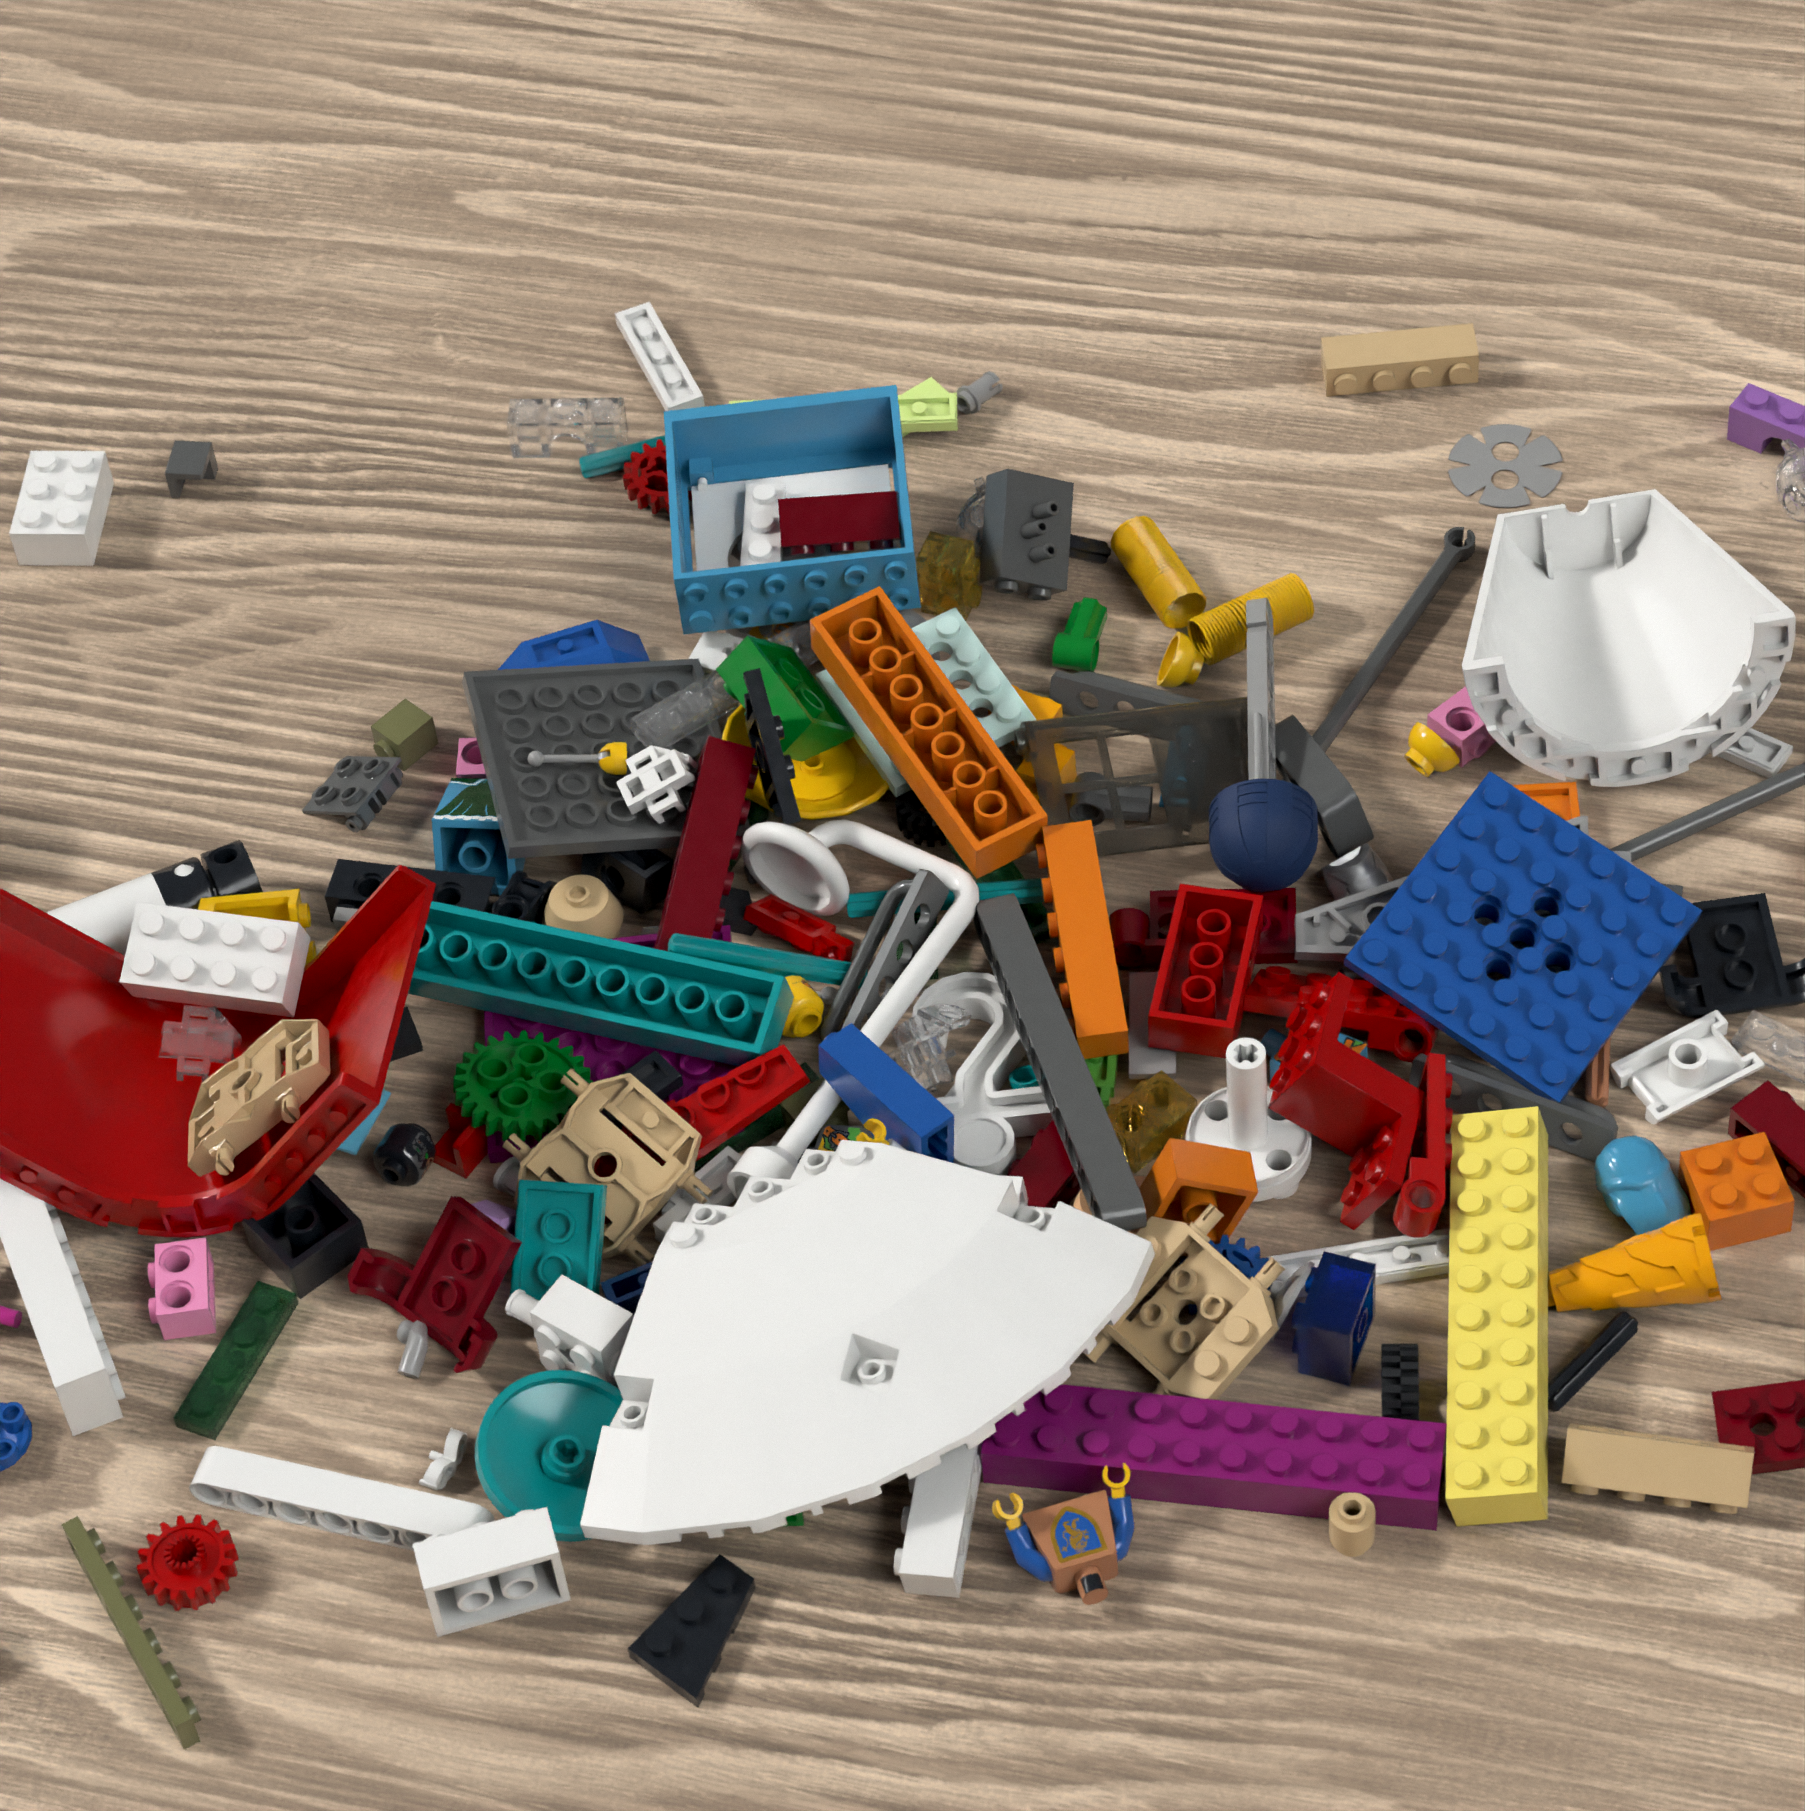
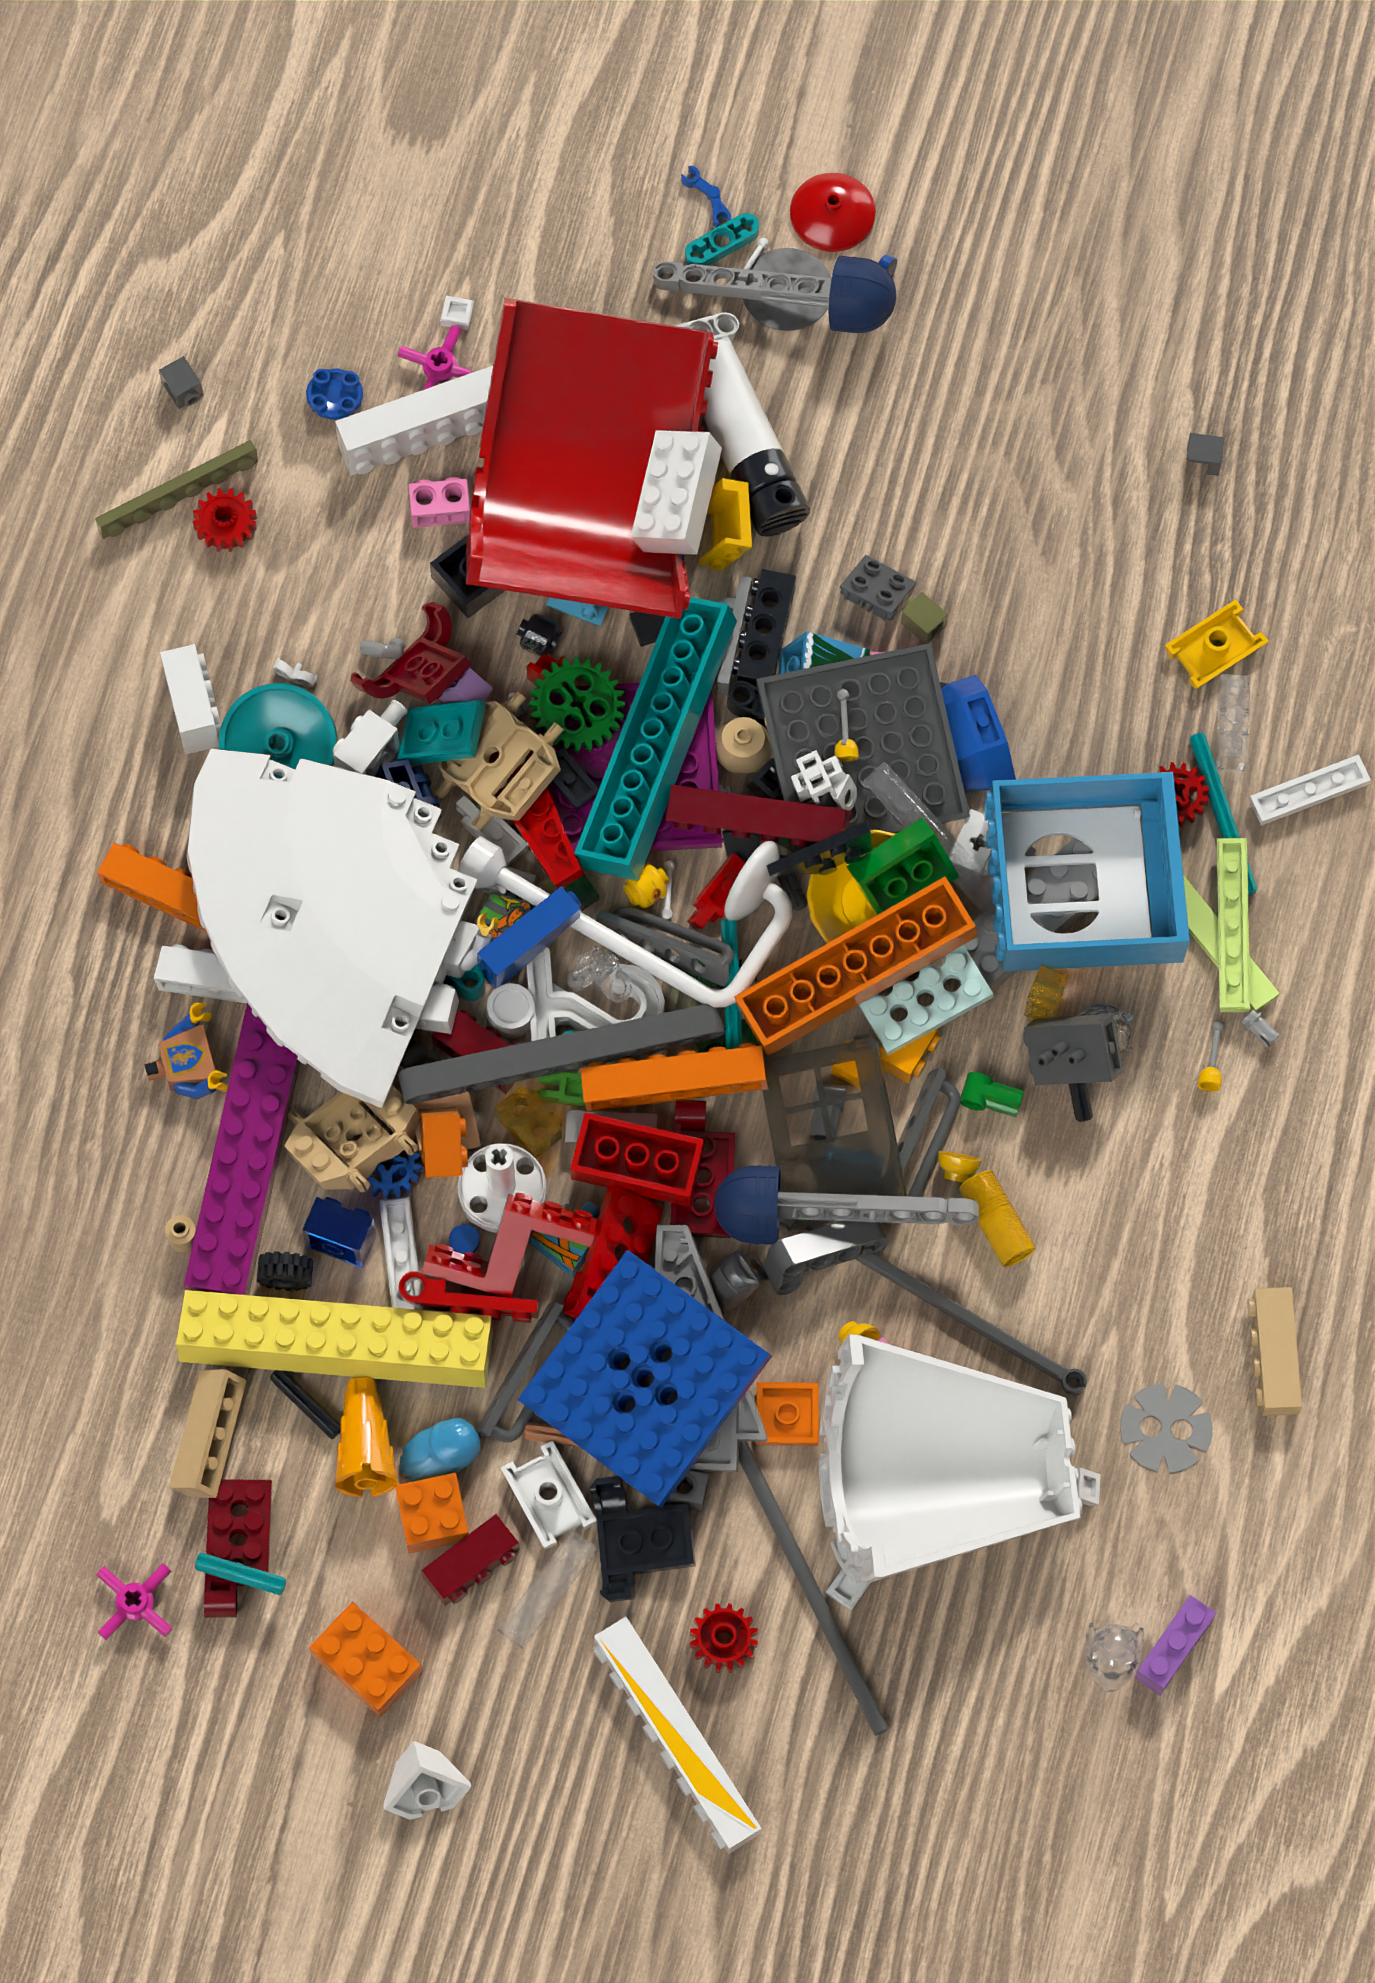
camera: 85 degrees right, 20 degrees up
(61, 508) = (1167, 365): white brick -> none
(190, 1038) = (622, 485): clear piece -> none
(236, 1360) = (383, 539): clear green plate -> none
(252, 1097) = (545, 516): tan piece -> none
(328, 1499) = (261, 609): white beam -> none
(461, 453) = (1207, 661): none -> yellow piece
(692, 1632) = (148, 826): black wing -> none
(761, 524) = (1066, 855): white plate -> none
(762, 959) = (673, 858): teal axle -> none
(800, 1592) = (150, 882): none -> orange brick
(840, 521) = (1073, 901): dark red brick -> none
(1044, 435) = (1210, 1077): none -> yellow hinge
(1158, 572) = (1053, 1152): yellow piece -> none
(1286, 1292) = (360, 1200): light grey dish -> none
(1324, 1190) = (464, 1239): none -> blue tile

